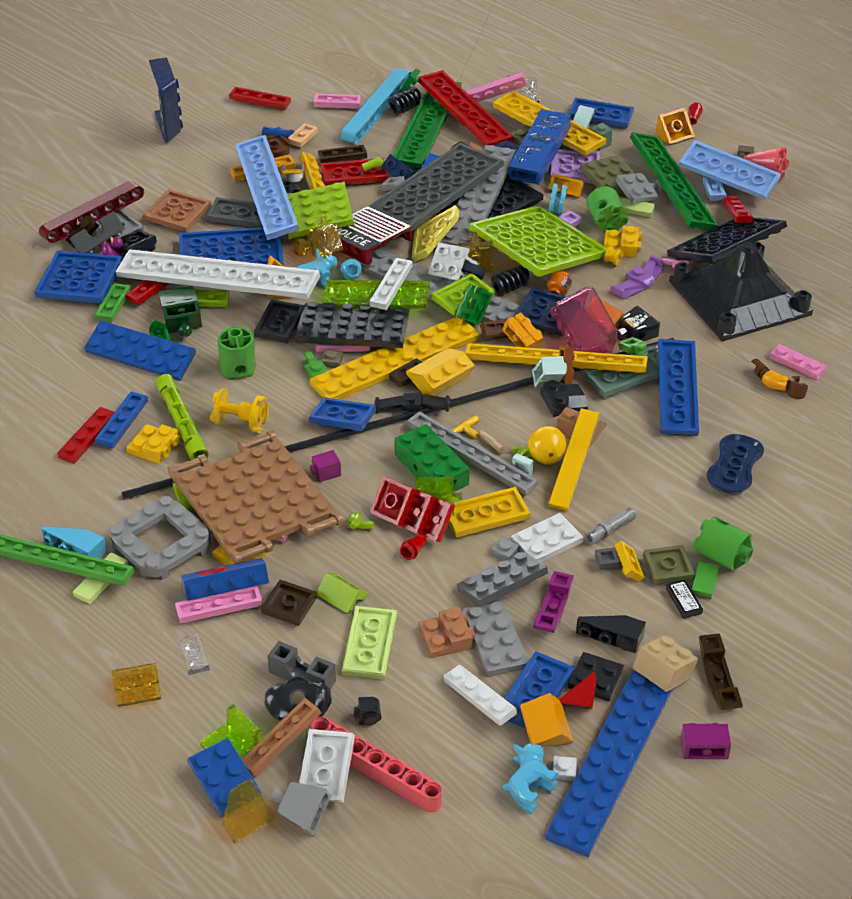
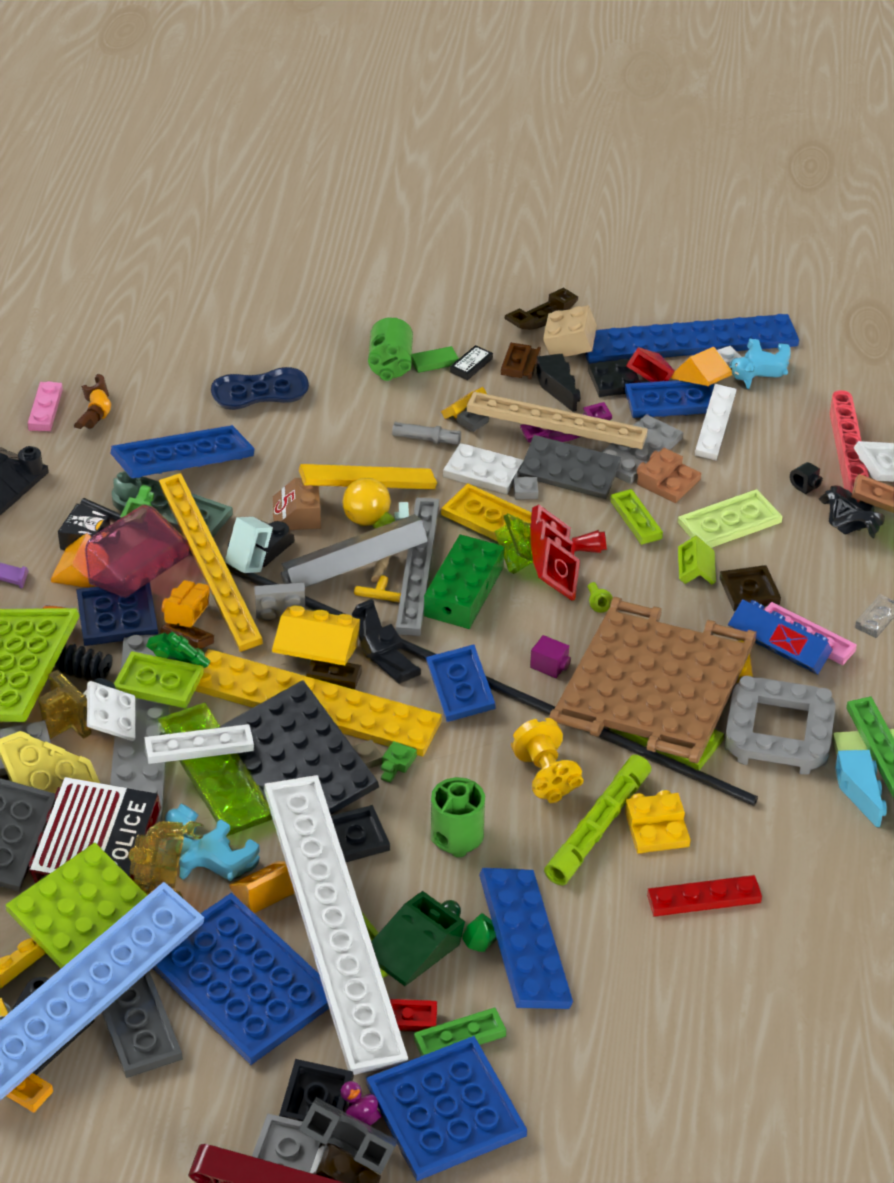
camera: 125 degrees left, 0 degrees up
(121, 420) = (653, 873): blue plate -> none
(177, 210) = (190, 1107): nougat plate -> none
(286, 663) = (818, 538): dark grey arch -> none
(417, 586) = (636, 516): none -> lime plate
(484, 366) = (274, 599): none -> light grey plate
(500, 418) = (355, 552): none -> brick
(550, 587) = (557, 420): none -> tan plate
(568, 356) = (220, 531): dark orange plate -> none
(661, 623) = (520, 361): none -> reddish brown plate
(668, 564) = (441, 381): olive plate -> none
(705, 741) = (620, 295): magenta brick -> none

